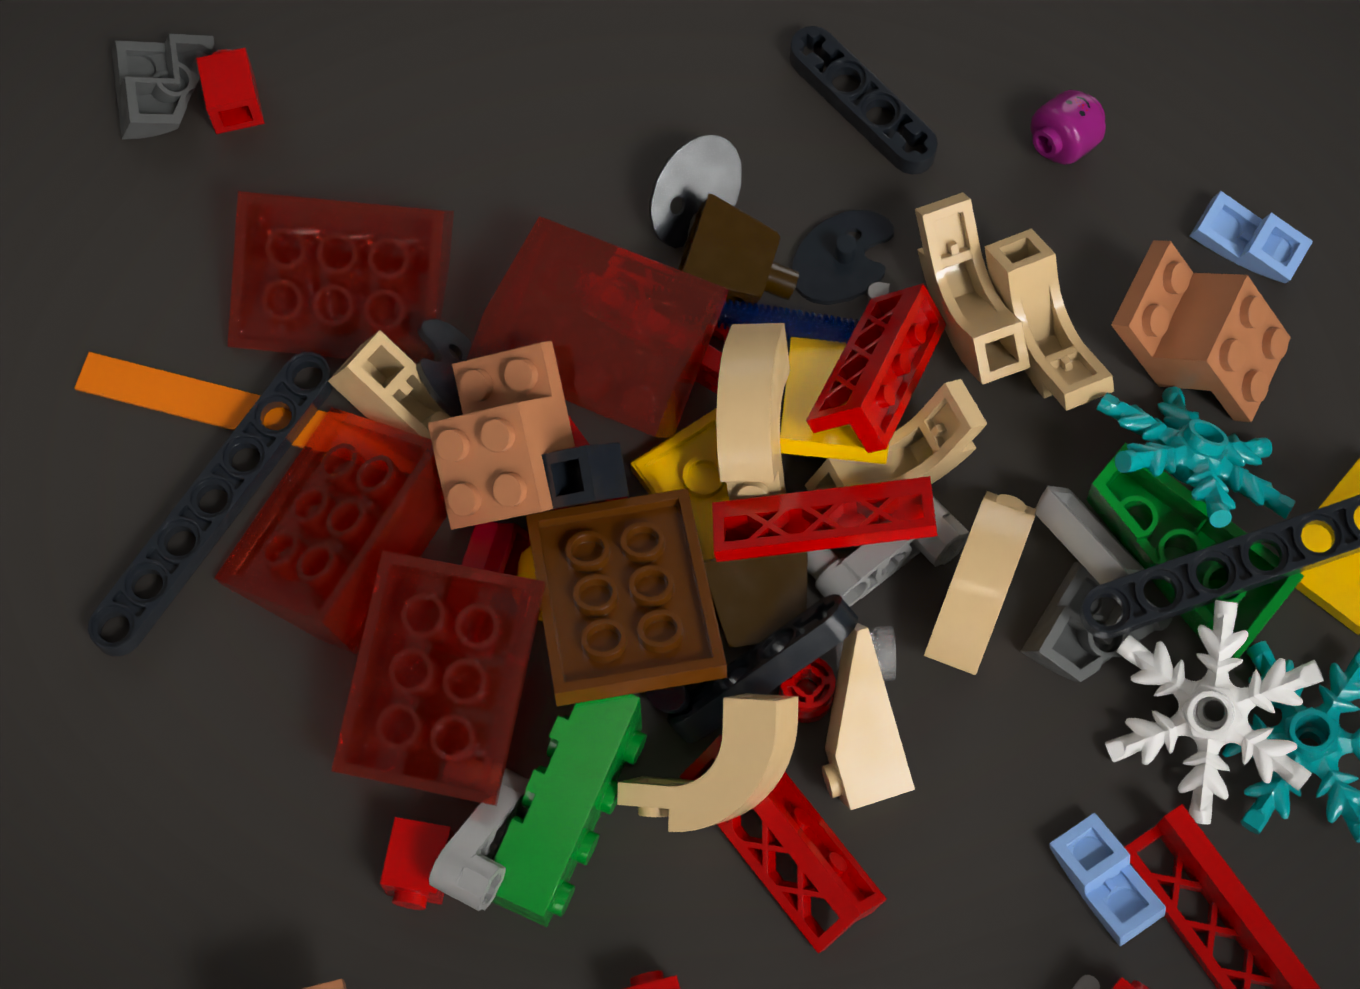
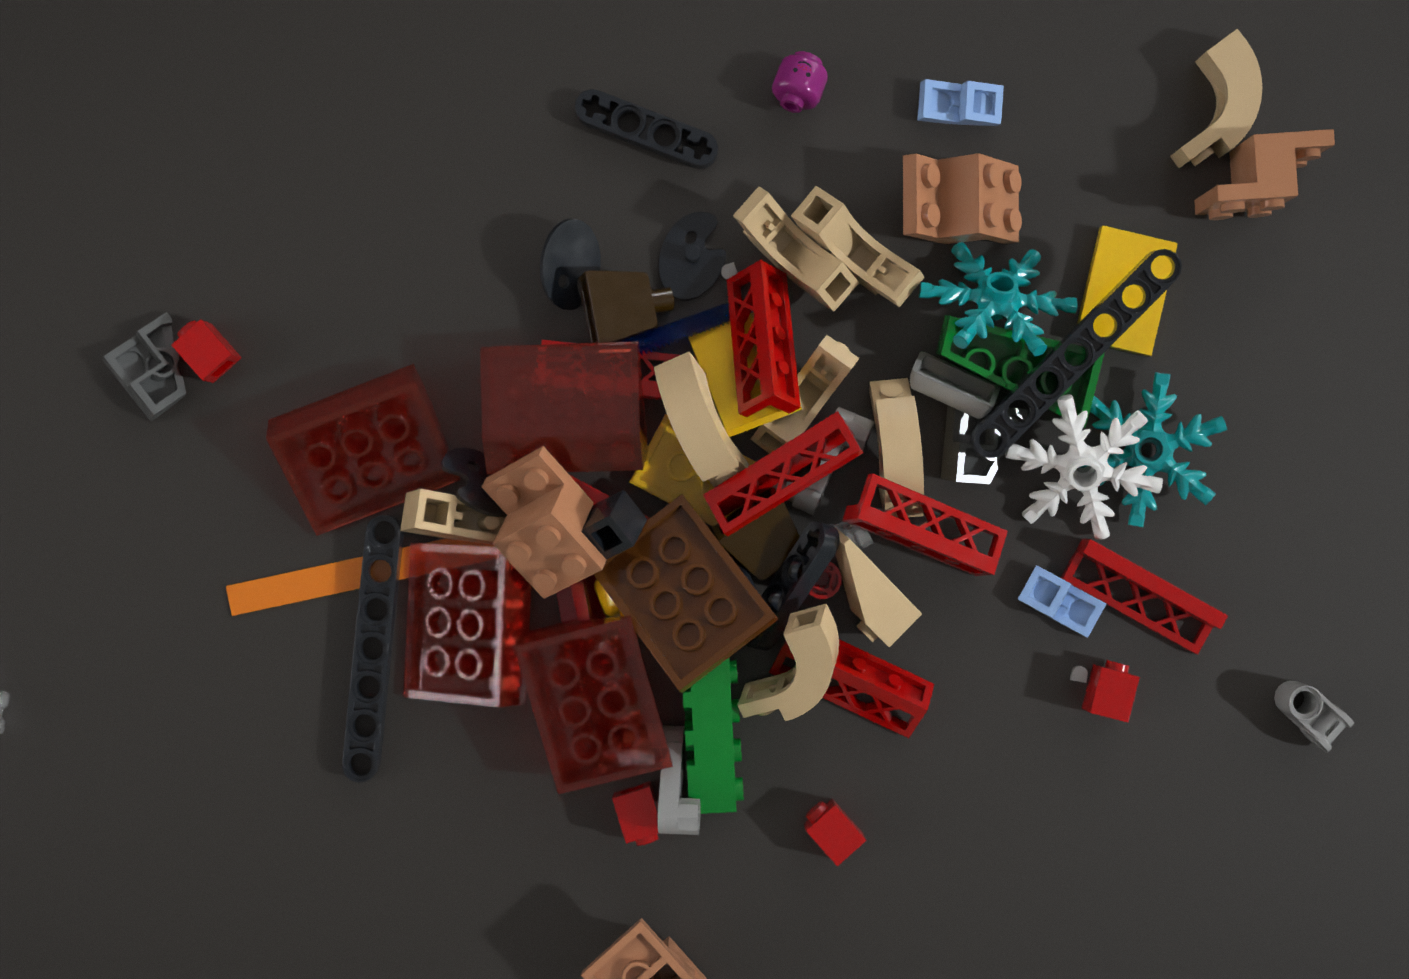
camera: 30 degrees left, 20 degrees up
(960, 696) = (917, 537): none -> red fence

